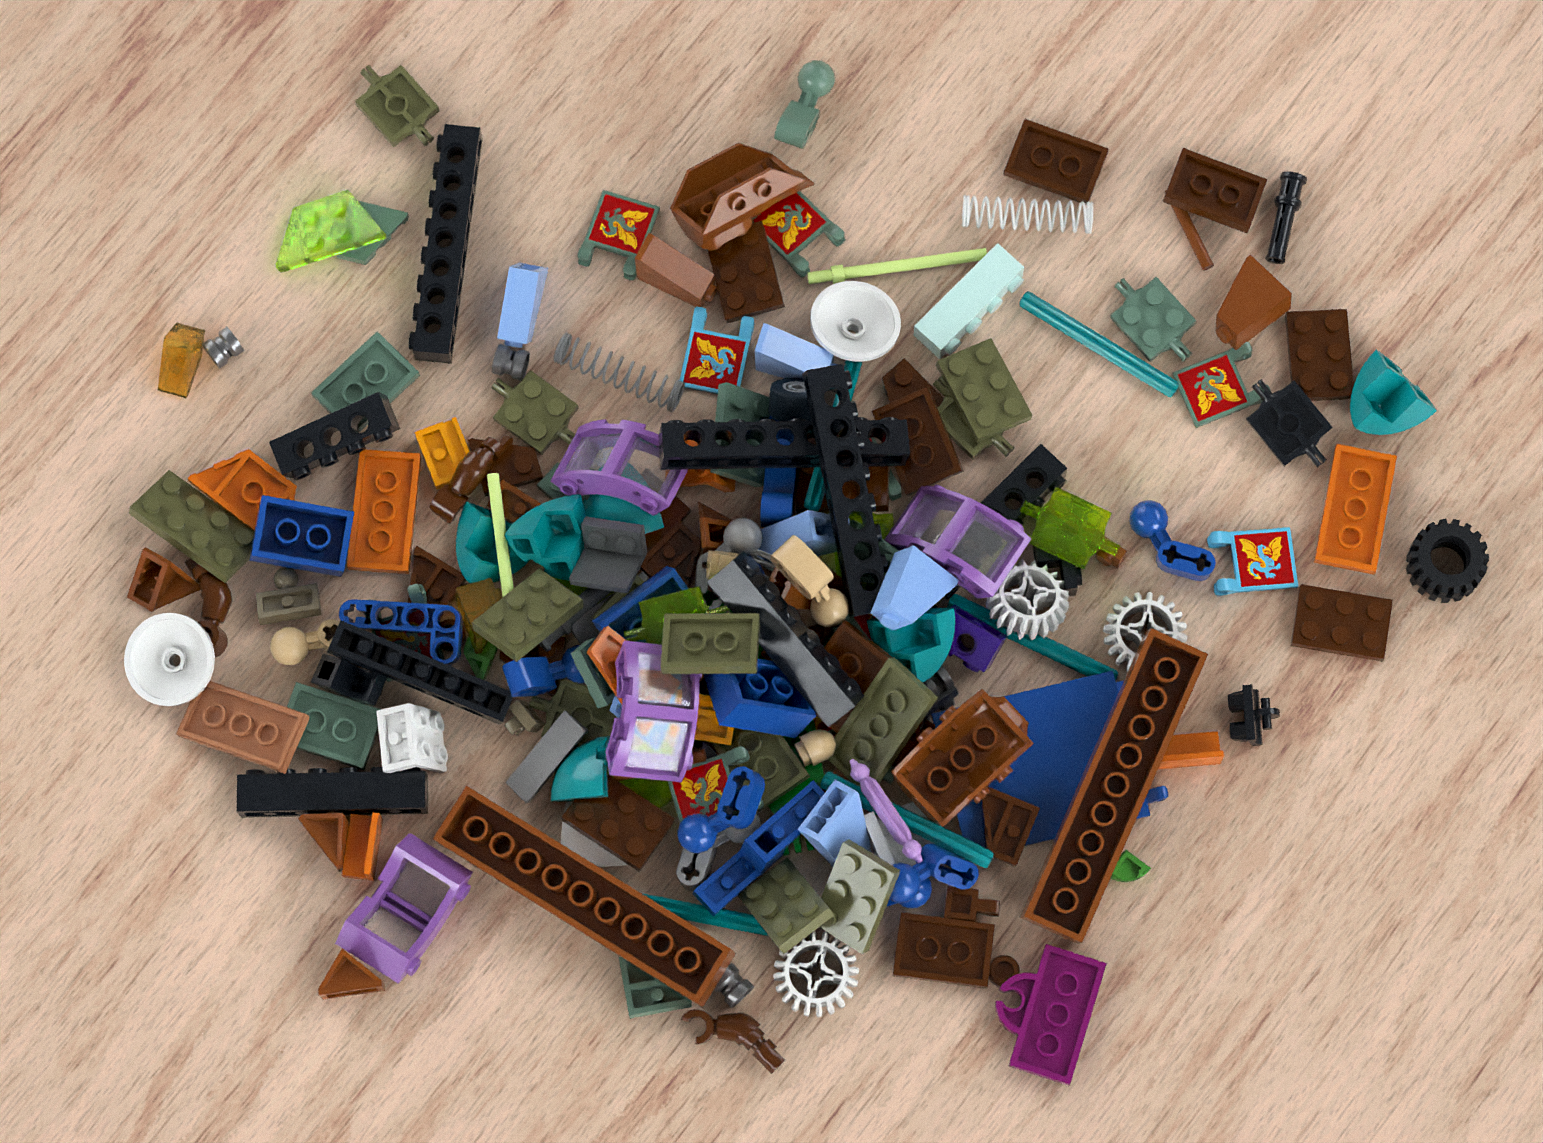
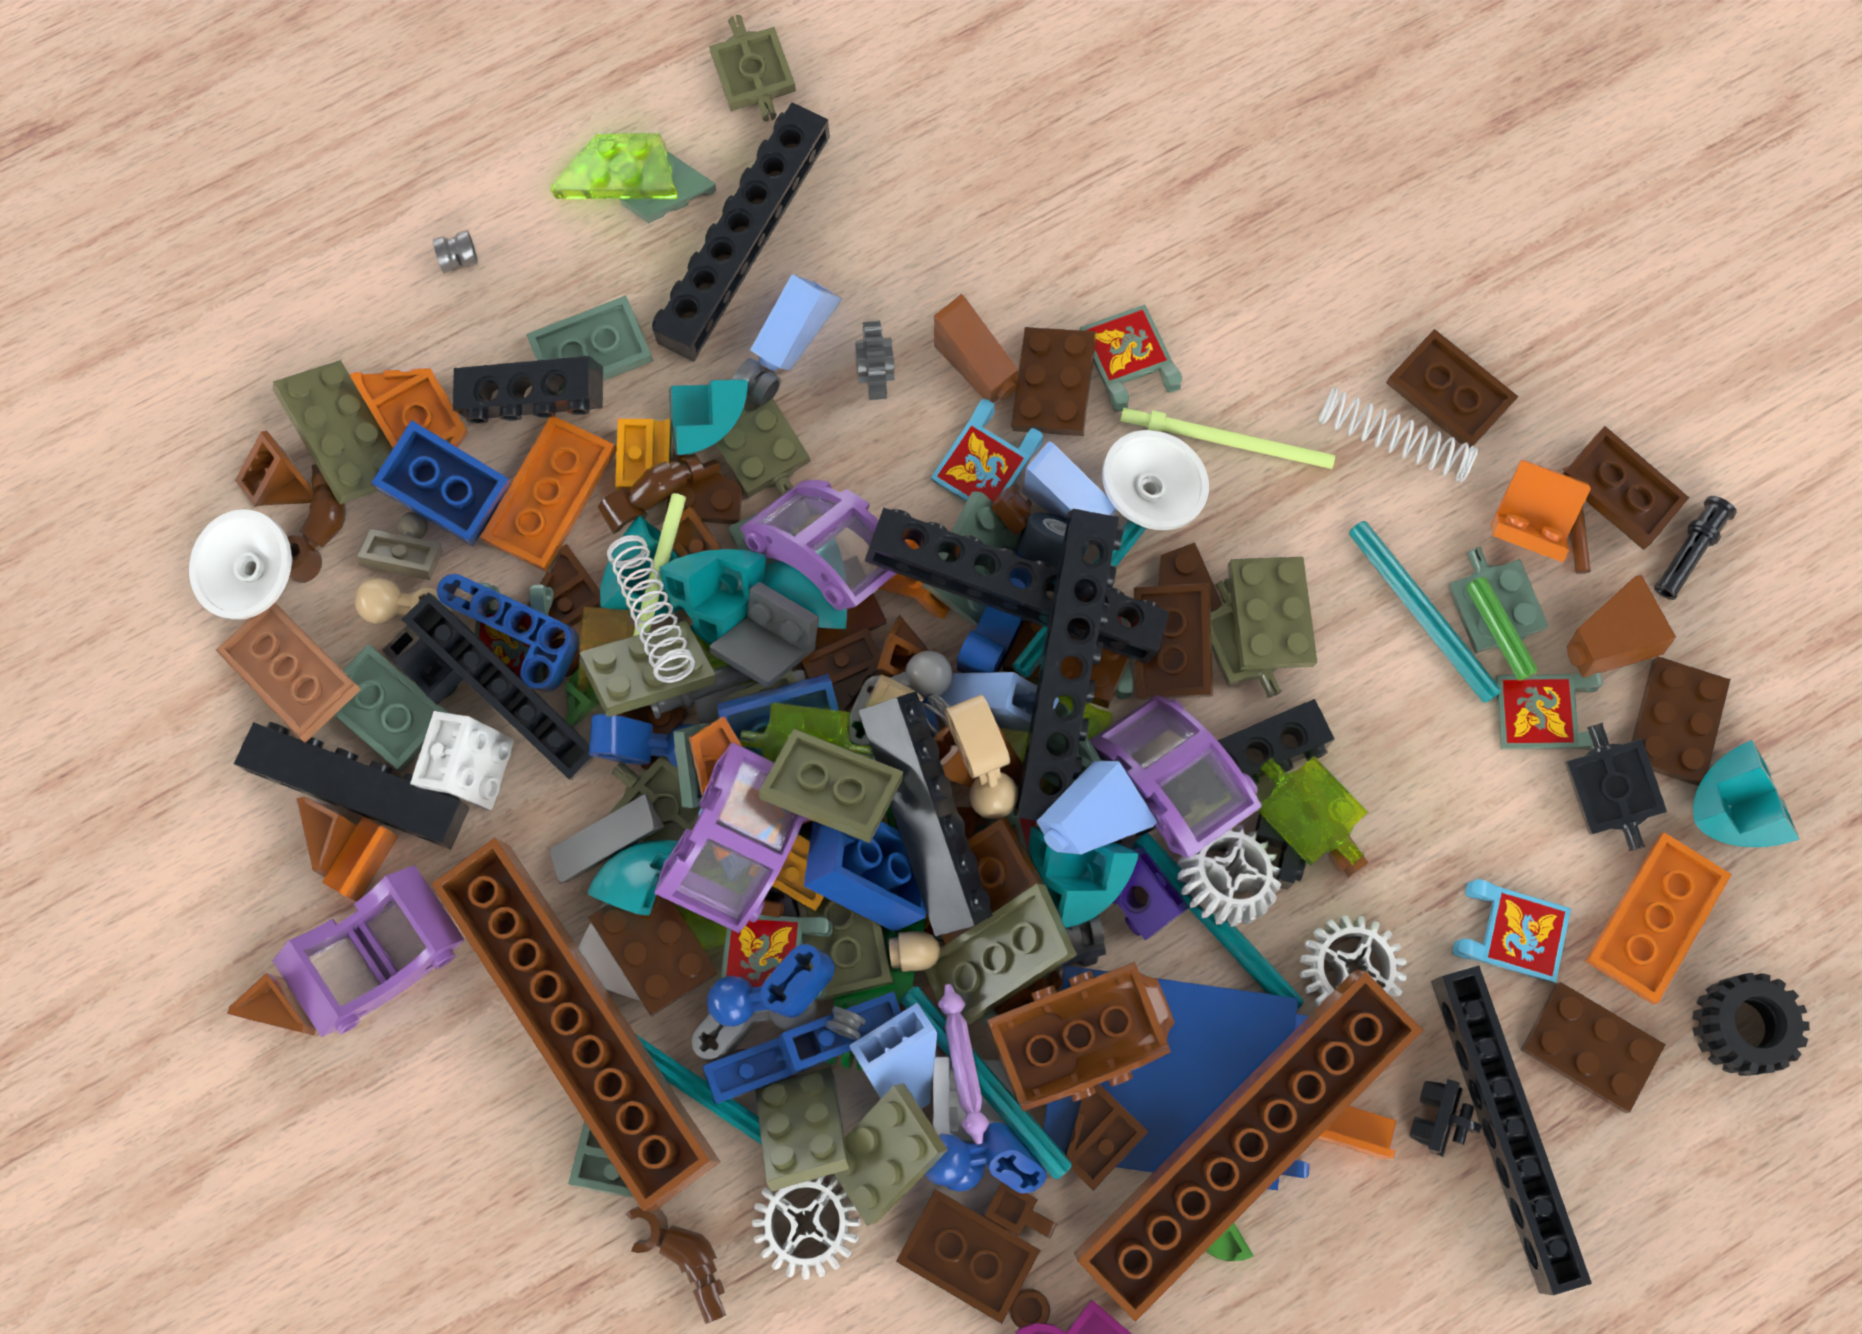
camera: 20 degrees right, 0 degrees up
(180, 359) = (404, 246): clear yellow slope -> none
(480, 537) = (673, 654): none -> white piece
(482, 403) = (704, 413): none -> teal brick
(524, 718) = (600, 784): dark tan tile -> none
(563, 347) = (822, 395): light grey piece -> none
(599, 309) = (874, 360): none -> dark grey gear
(620, 228) = (932, 283): flag -> none
(730, 190) = (1072, 285): dark orange slope -> none
(733, 986) = (705, 1196): flat silver wheel -> none
(754, 385) = (1012, 509): none -> reddish brown plate
(789, 813) = (845, 1023): none -> dark grey bush
(801, 117) = (1183, 238): sand green beam -> none
(969, 301) = (1293, 506): light aqua brick -> none
(1150, 521) = (1409, 837): blue beam -> none
(1157, 233) = (1539, 510): none -> orange bracket
(1161, 336) = (1501, 628): none -> bright green axle
(1300, 703) = (1511, 1132): none -> black brick

